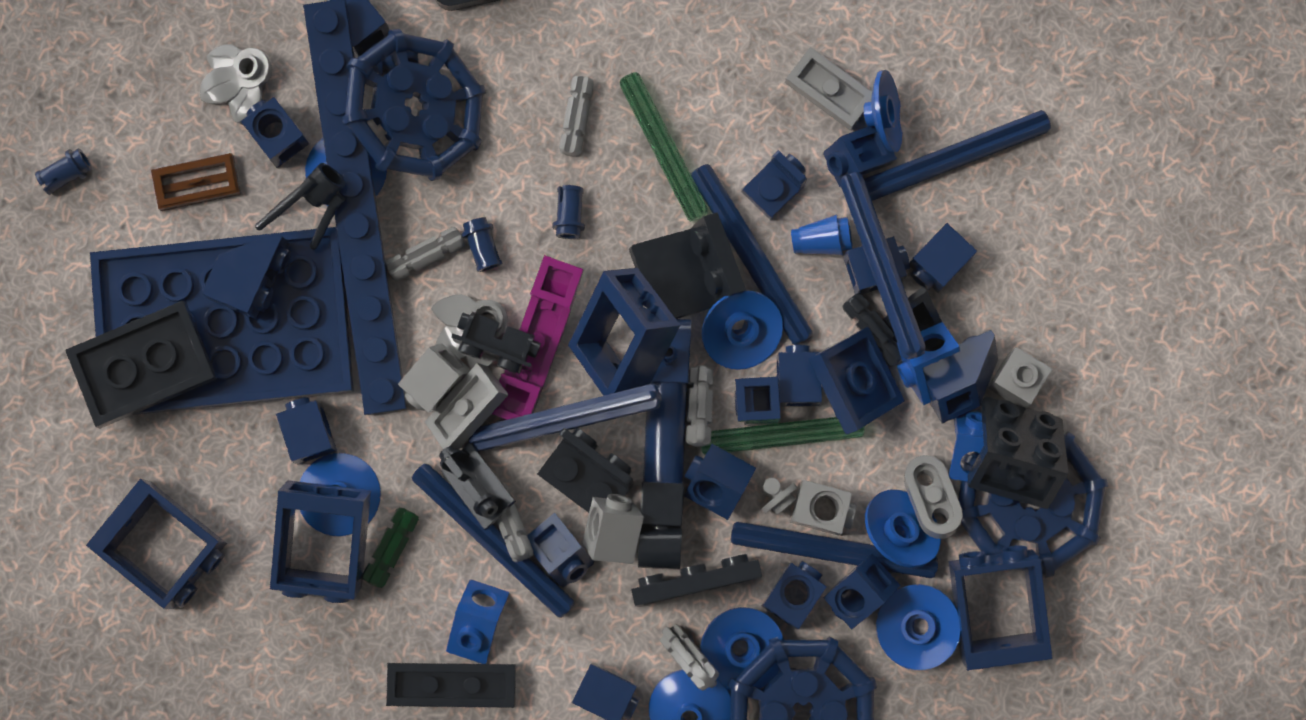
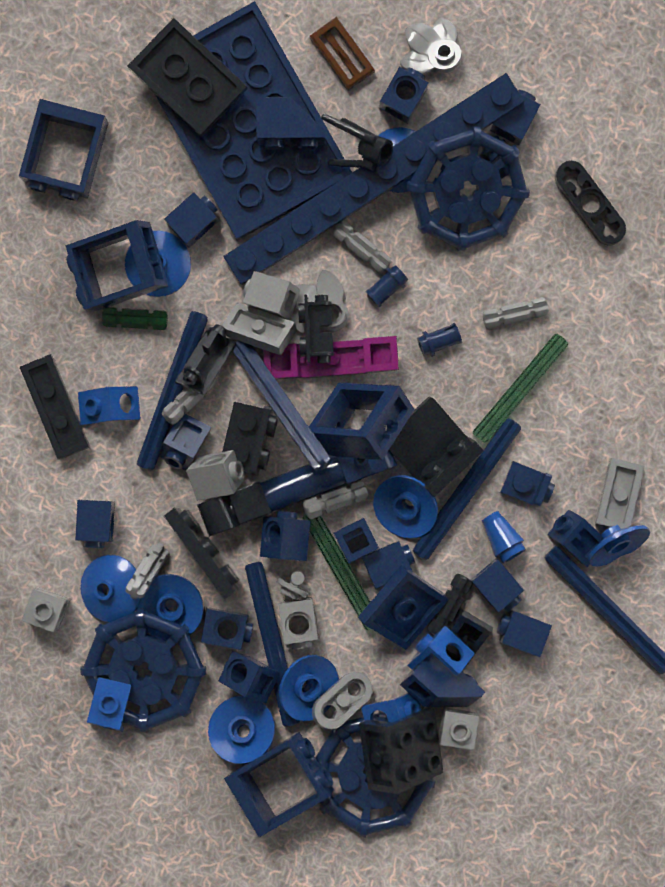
camera: 65 degrees right, 5 degrees up
(883, 266) = (496, 591): dark blue axle -> none

